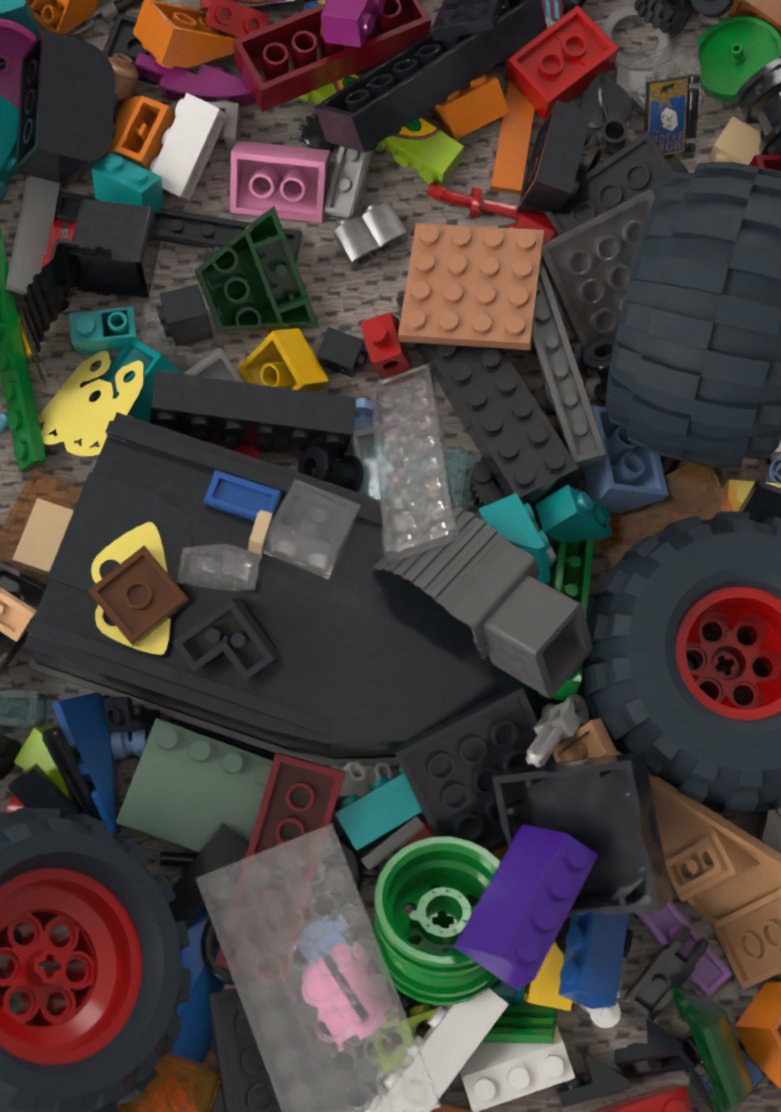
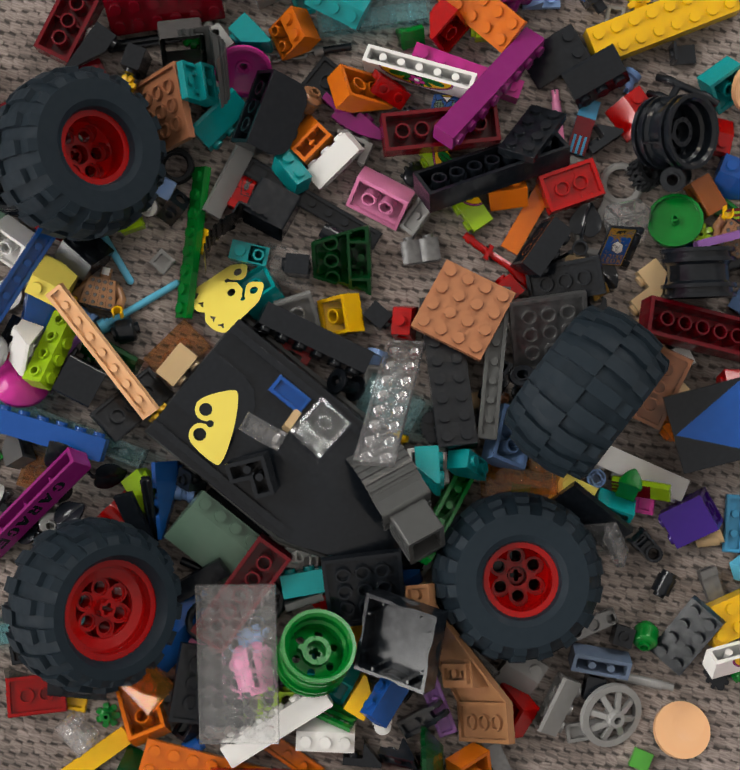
camera: 20 degrees right, 10 degrees up
(138, 596) = (215, 429): reddish brown tile -> none
(526, 904) = (358, 664): dark purple slope -> none
(555, 725) = (411, 576): light grey connector -> none

